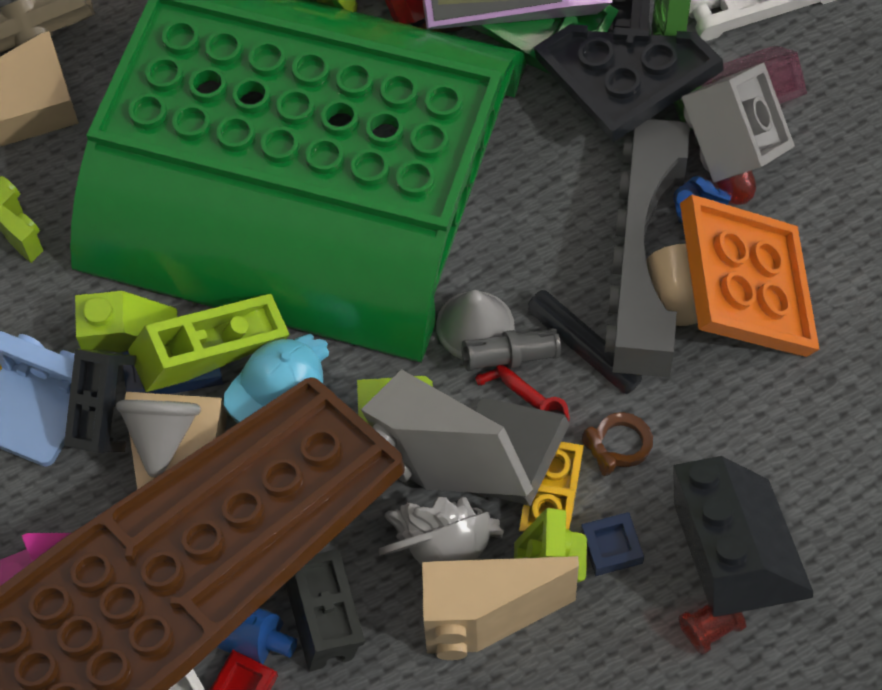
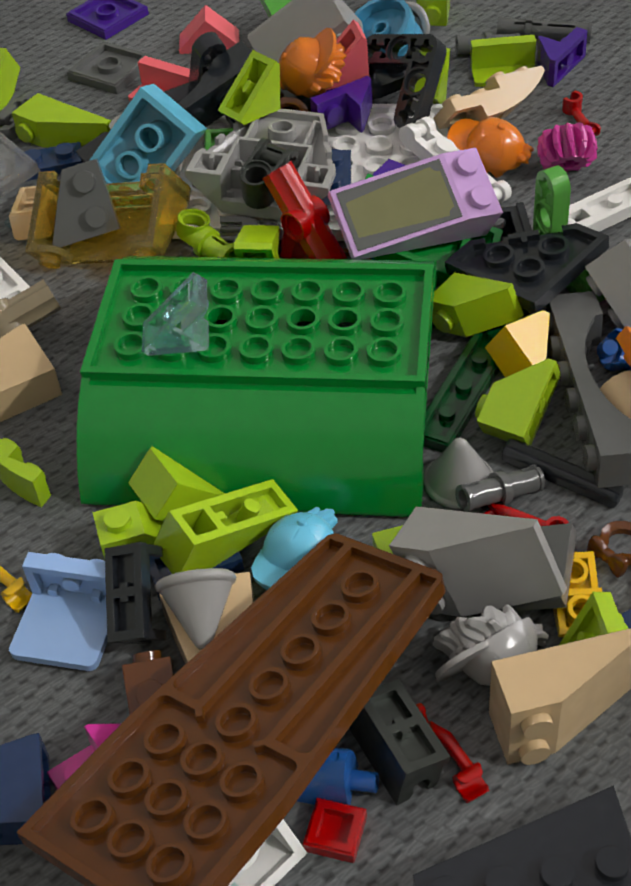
camera: 10 degrees left, 15 degrees down
(96, 490) = (145, 676): none -> reddish brown bracket
(163, 284) = (168, 485): none -> lime slope
(200, 100) = (179, 321): none -> clear light blue slope
(385, 663) = (469, 779): none -> red piece
(525, 199) = (461, 391): none -> dark green tile
(549, 110) = (474, 305): none -> lime slope
(559, 253) = (518, 402): none -> lime slope
(586, 183) = (520, 343): none -> yellow slope

